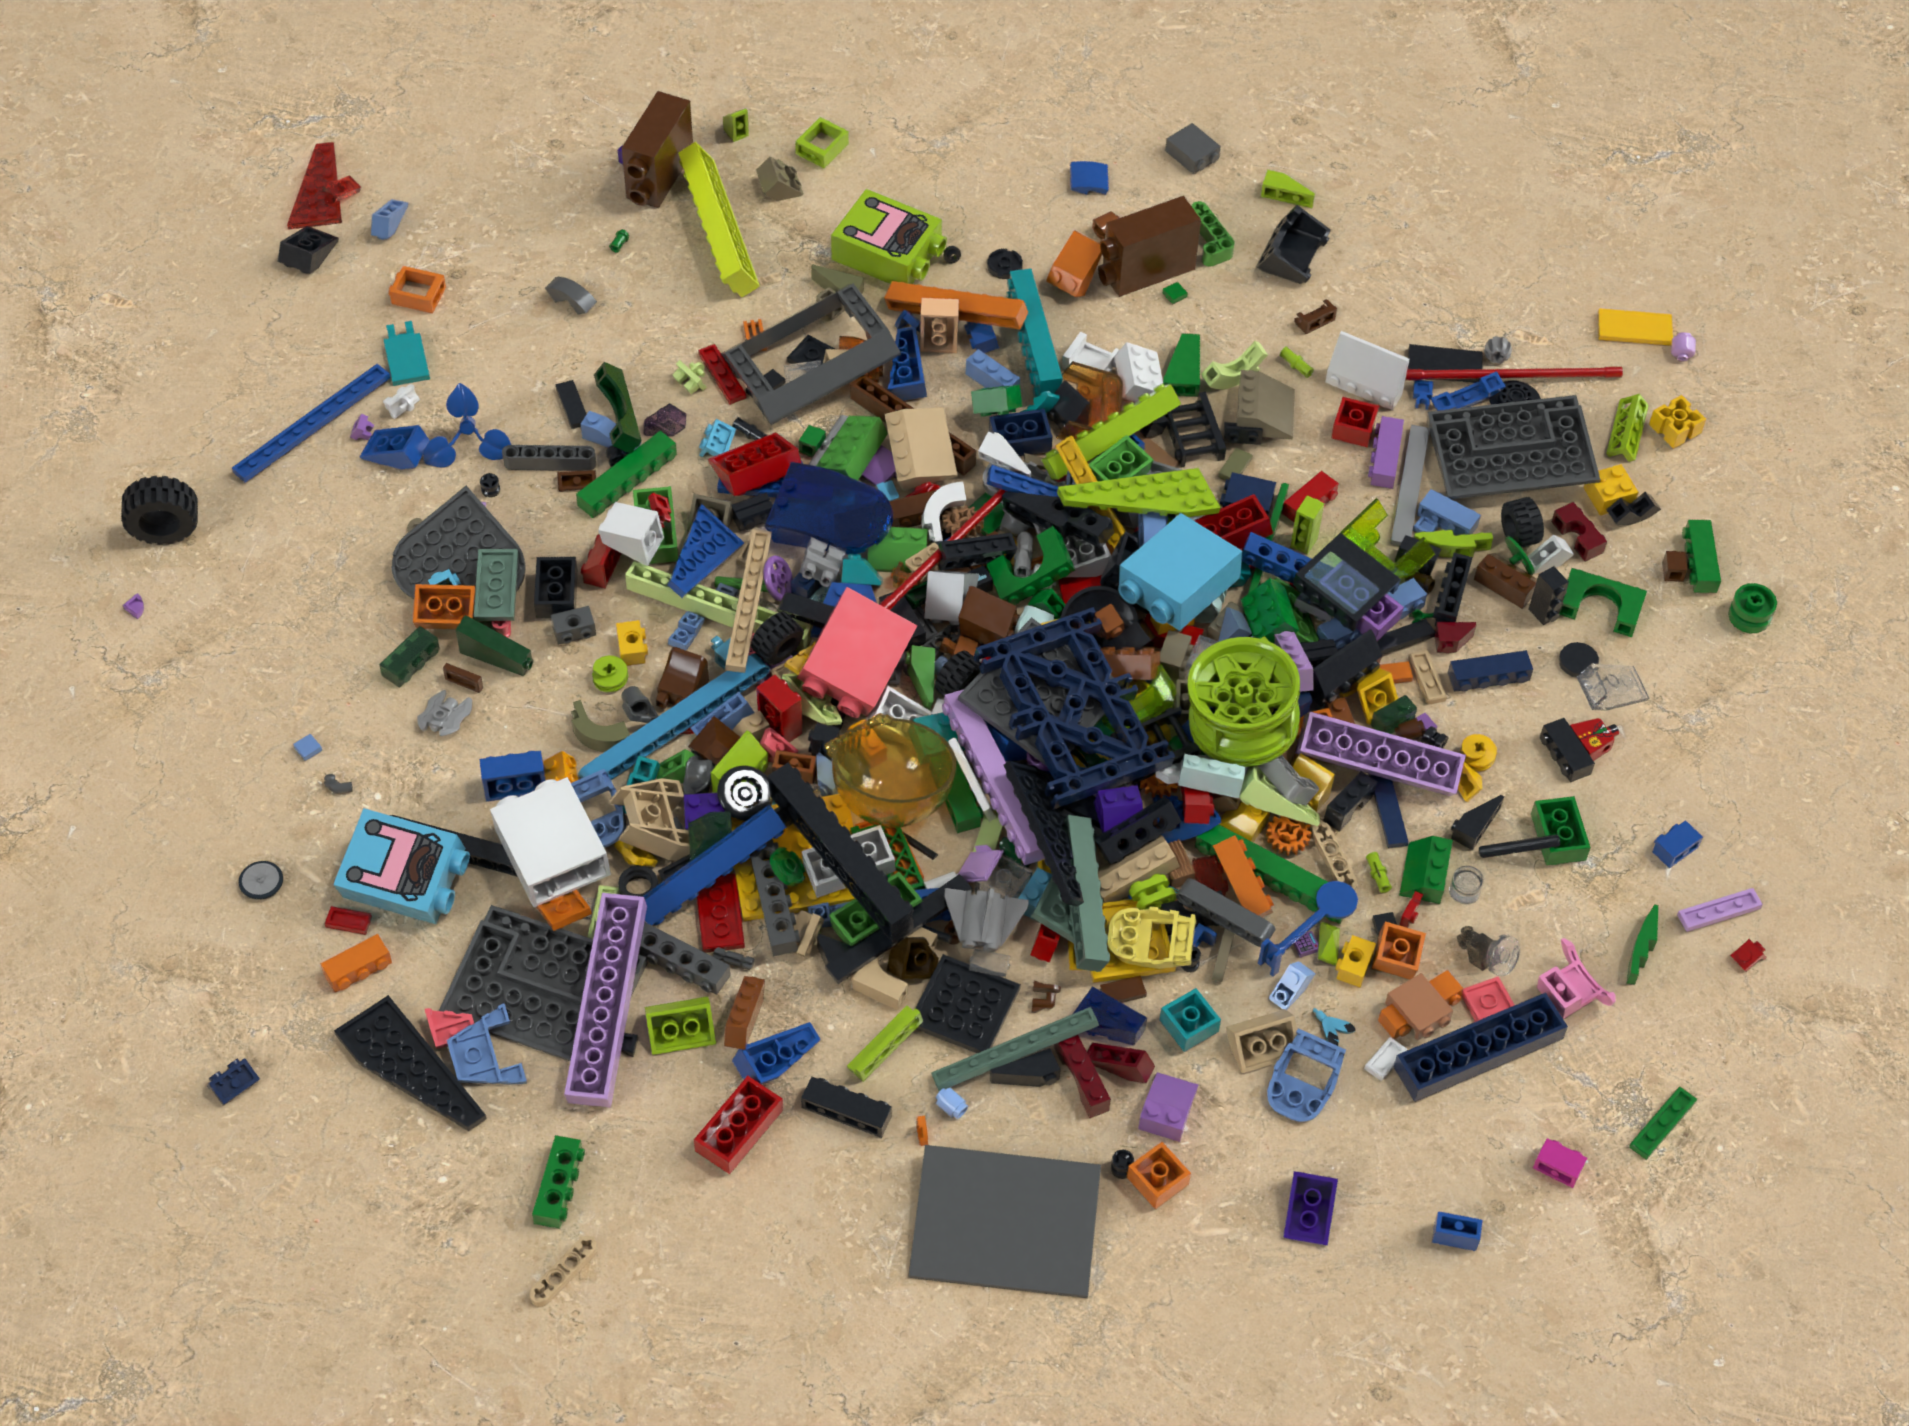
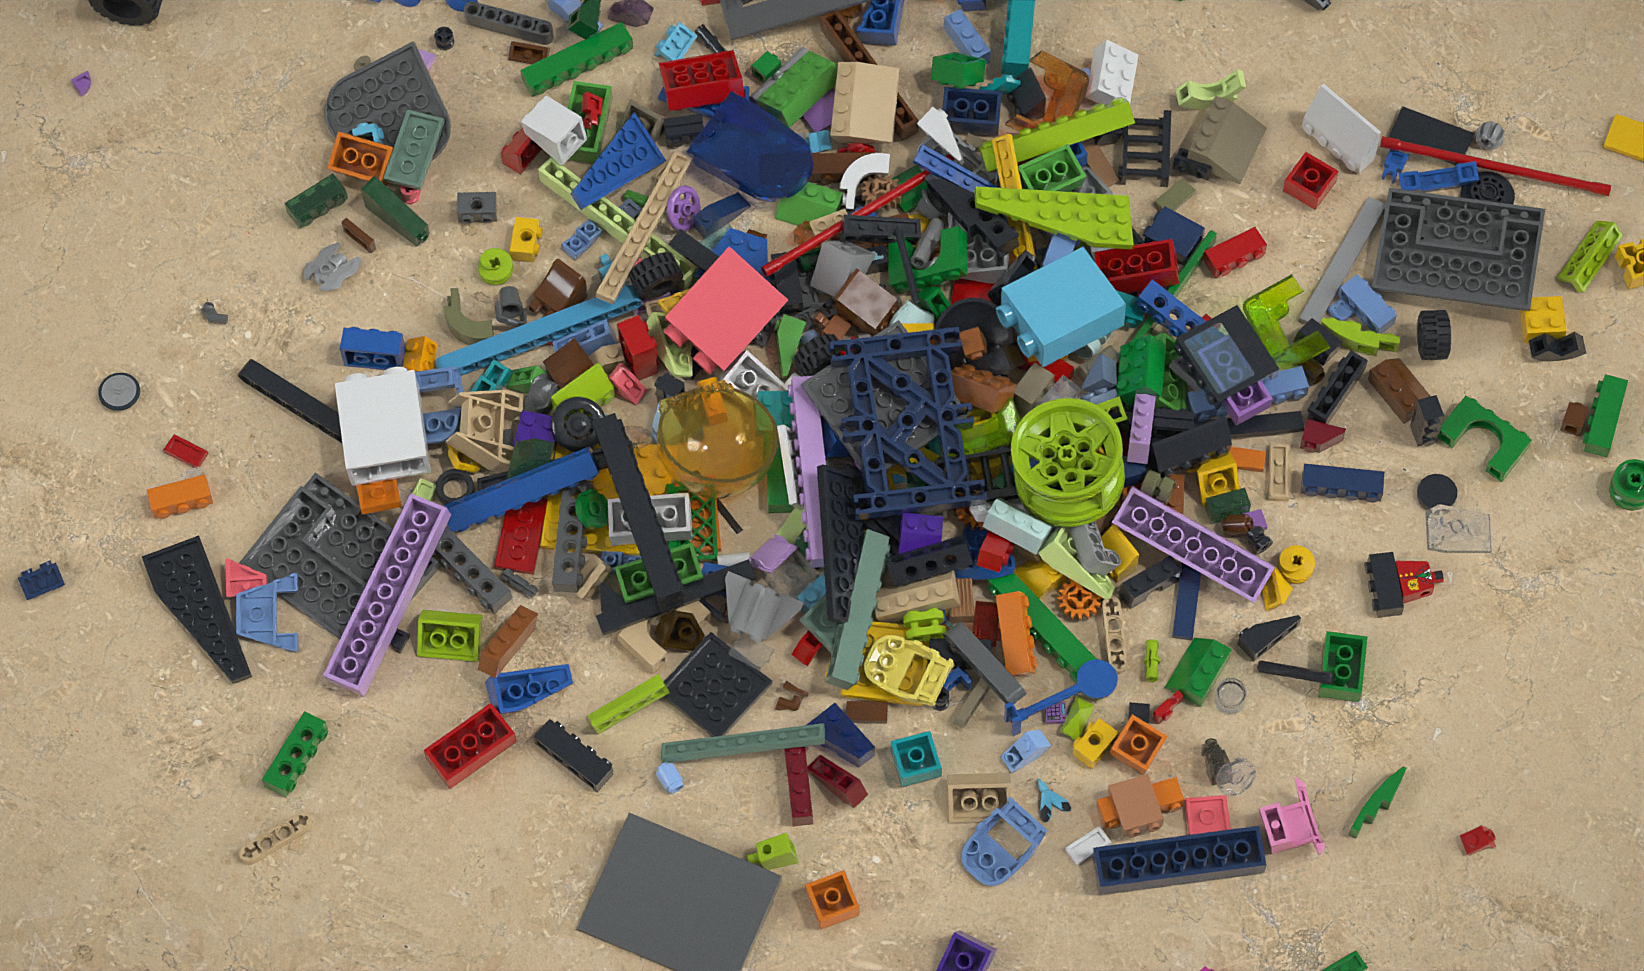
camera: 20 degrees right, 10 degrees up
(307, 747) = (198, 269): medium blue tile -> none
(362, 936) = (192, 473): none -> clear tile
(401, 866) = (244, 415): brick -> none
(555, 585) = (471, 163): black brick -> none
(614, 455) = (571, 38): black wheel -> none
(804, 763) = (634, 408): dark orange brick -> none
(819, 567) = (724, 209): light grey hips -> none
(859, 571) = (763, 222): teal slope -> none
(922, 1130) = (635, 793): orange tile -> none
(1014, 574) = (907, 265): none -> black bar
(1032, 1070) = (753, 766): black slope -> none
(1085, 1144) = (774, 852): none -> lime torso
(1089, 354) = (1070, 43): white panel -> none
(1123, 1159) = (803, 874): black wheel -> none
(1167, 1106) = (867, 835): medium lavender slope -> none
(1184, 366) = (1161, 78): green slope -> none
(1296, 362) = (1279, 98): lime pin -> none
(1307, 524) = (1215, 283): lime brick -> none
(1316, 318) = (1318, 53): reddish brown hinge -> none
(1322, 705) = (1158, 487): none -> olive wheel
(1387, 452) = (1331, 221): medium lavender brick -> none
(1419, 615) = (1296, 406): green hand -> none
(1519, 555) = (1417, 369): green piece -> none
(1549, 554) = (1451, 374): white slope -> none
(1572, 519) = (1490, 341): dark red arch -> none
(1677, 843) = (1454, 709): blue brick -> none
(1719, 909) = (1468, 787): lavender plate -> none

